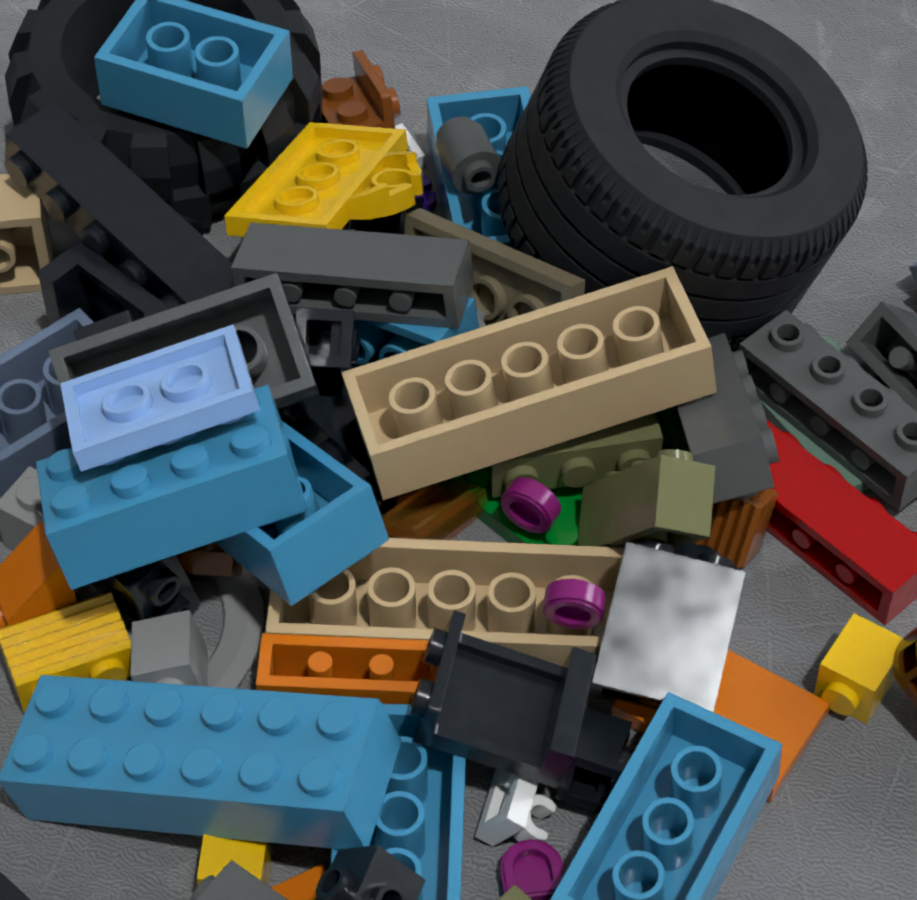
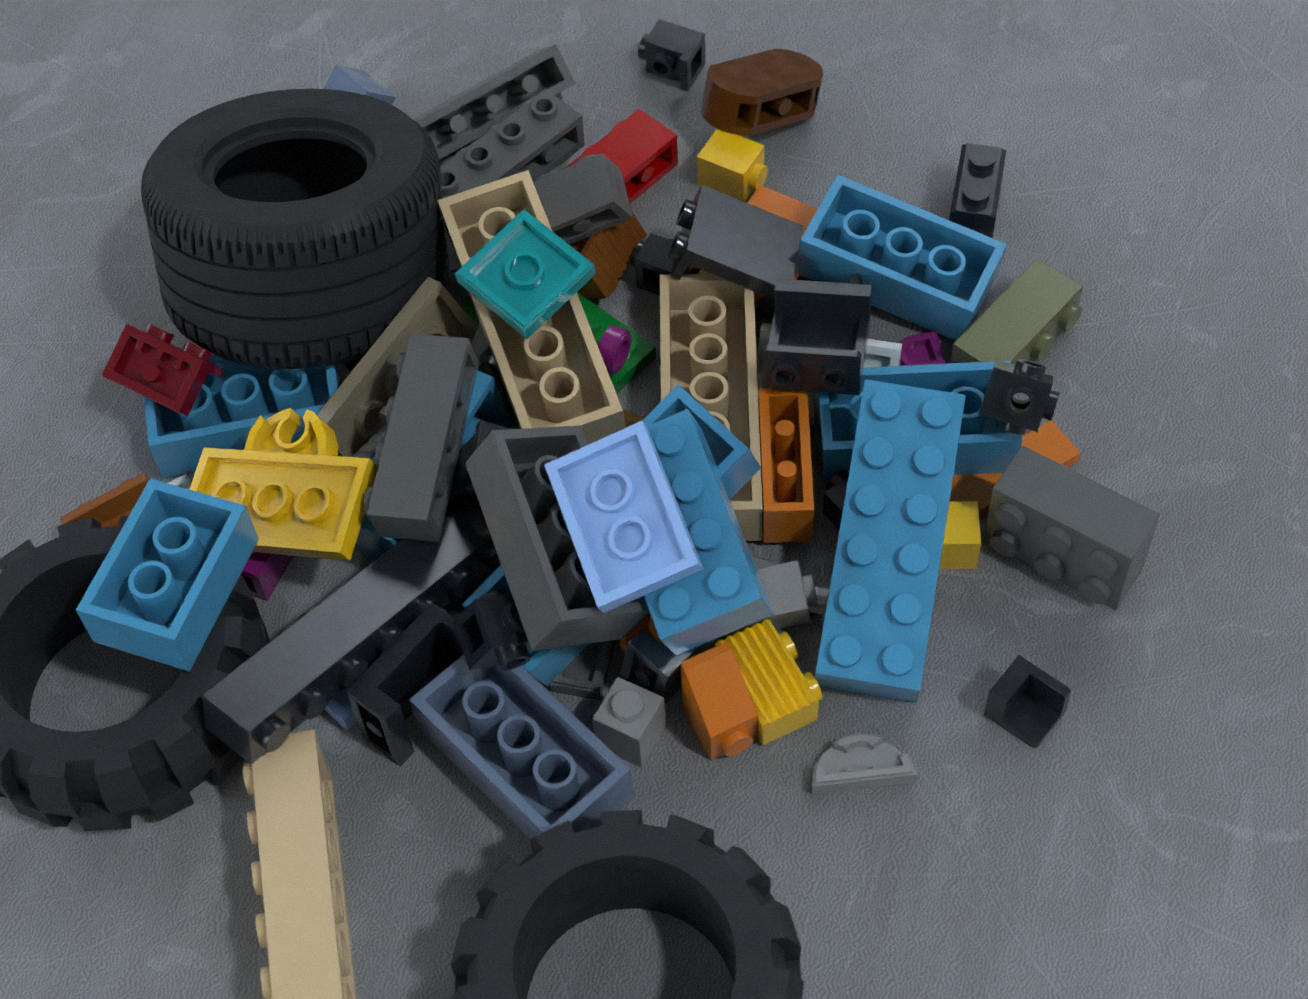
camera: 90 degrees left, 5 degrees up
(467, 155) = (244, 394): dark grey brick -> none
(504, 87) = (158, 369): none -> dark red bracket
(549, 343) = (525, 273): none -> teal plate
(574, 603) = (731, 294): magenta tile -> none
(652, 499) = (635, 256): olive brick -> none

